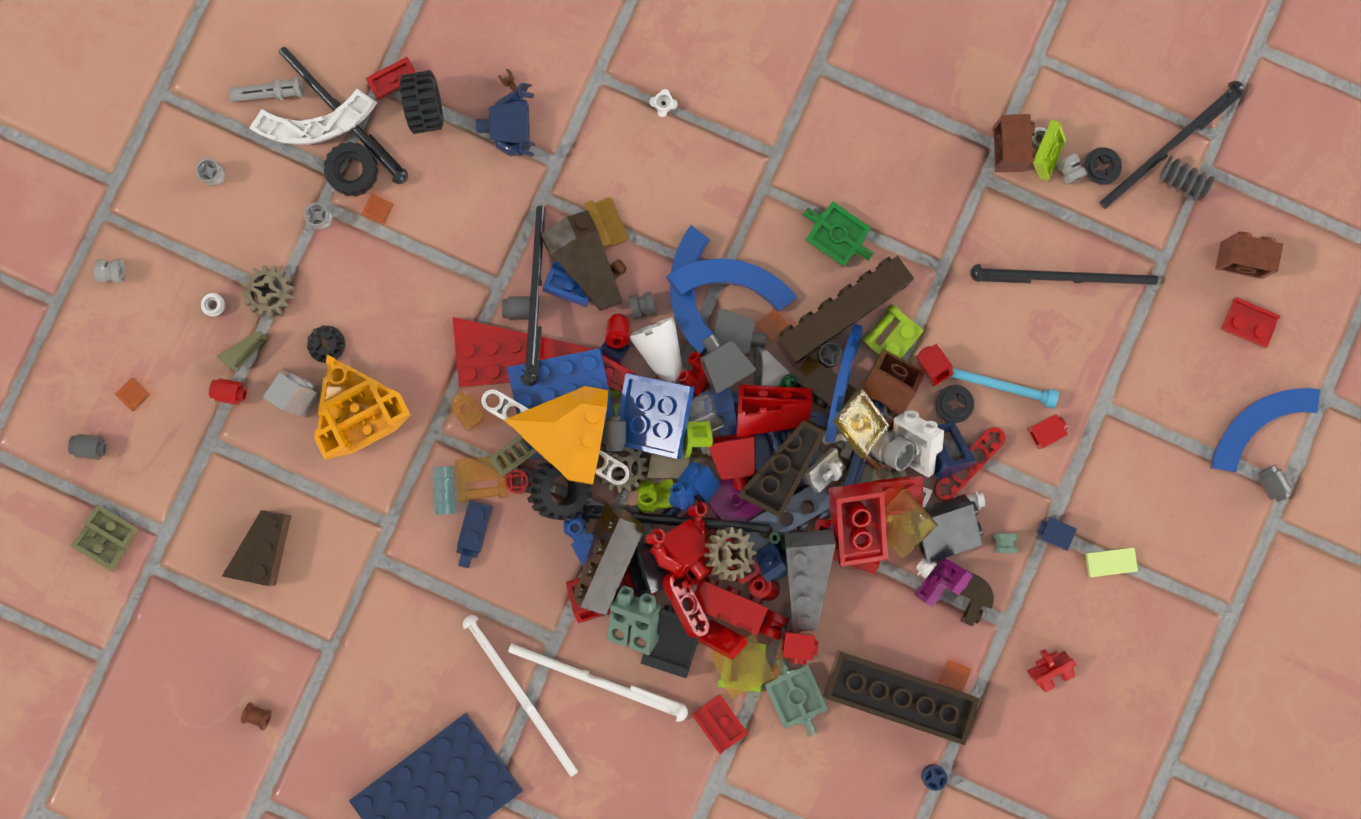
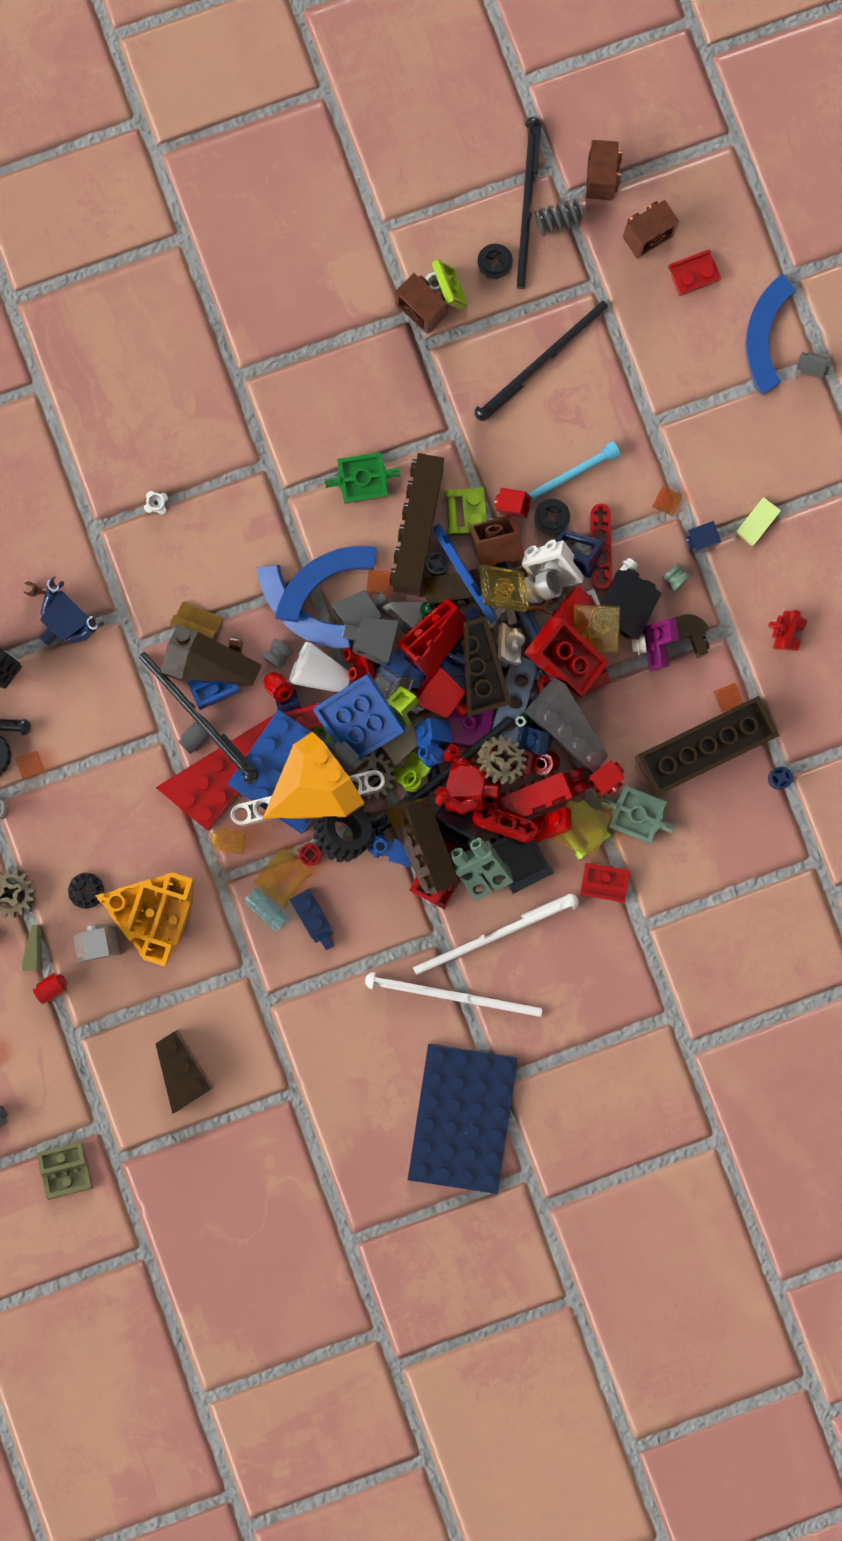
camera: 55 degrees left, 0 degrees up
(256, 716) = (289, 1186): copper bush -> none
(498, 463) = (286, 854): olive slope -> none
(1048, 431) = (631, 474): red brick -> none
(1056, 478) = (667, 501): none -> clear orange tile
(1071, 169) = (476, 283): light grey wheel -> none
(1256, 175) = (603, 170): none -> copper brick

